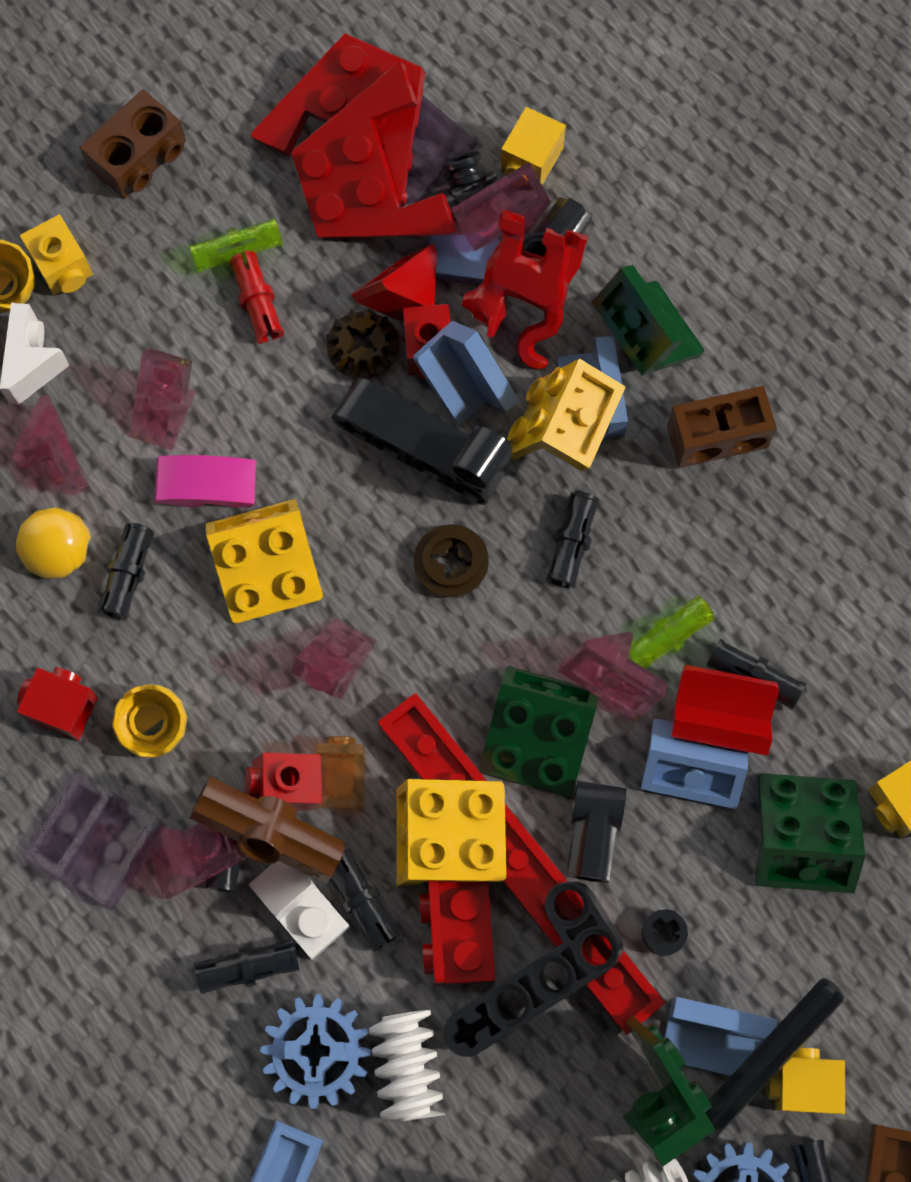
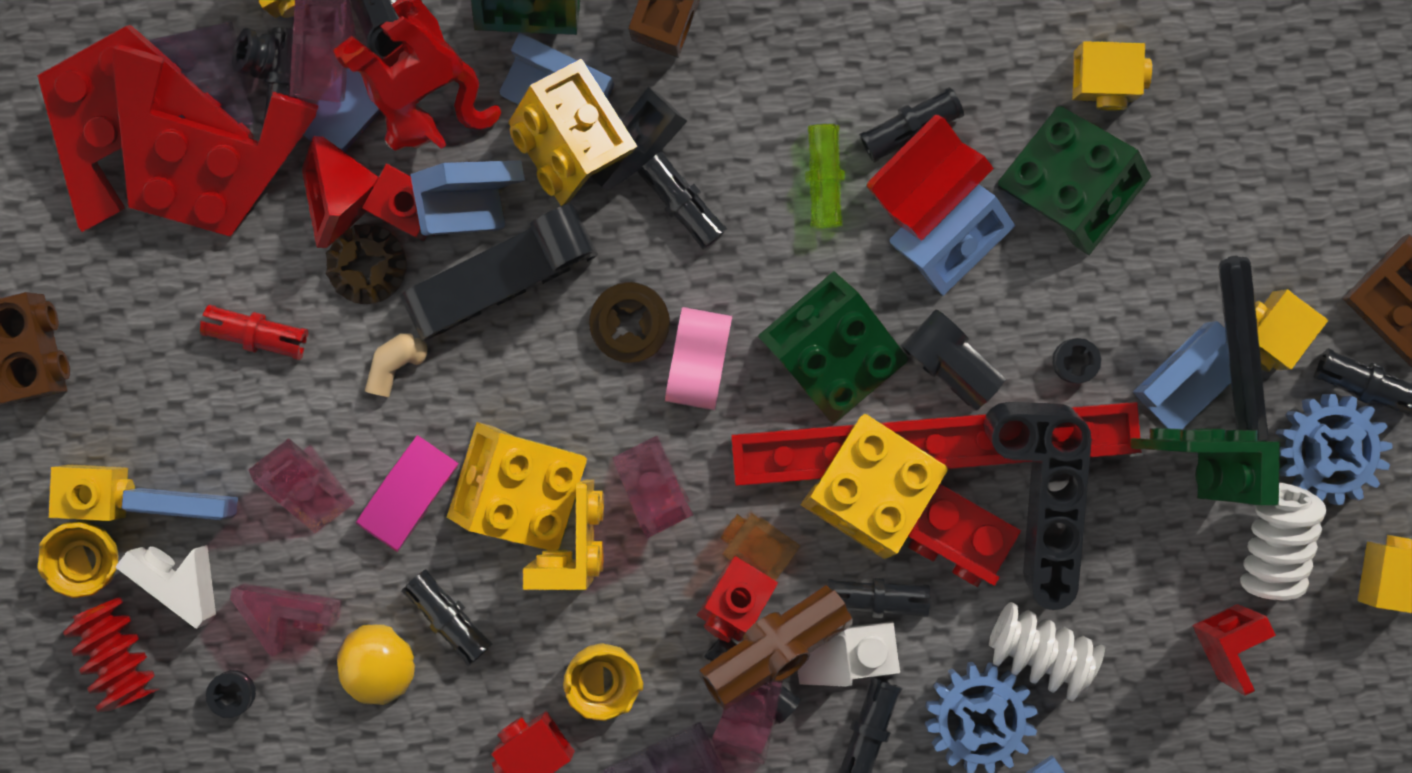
camera: 60 degrees left, 15 degrees up
(89, 323) = (179, 503): none -> medium blue tile
(245, 638) = (556, 567): none -> yellow bracket
(266, 235) = (194, 283): clear neon green pin -> none
(302, 404) = (389, 358): none -> tan arm
(458, 629) = (698, 358): none -> bright pink axle
(606, 478) = (652, 126): none -> black slope
(607, 672) = (832, 255): clear pink slope -> none

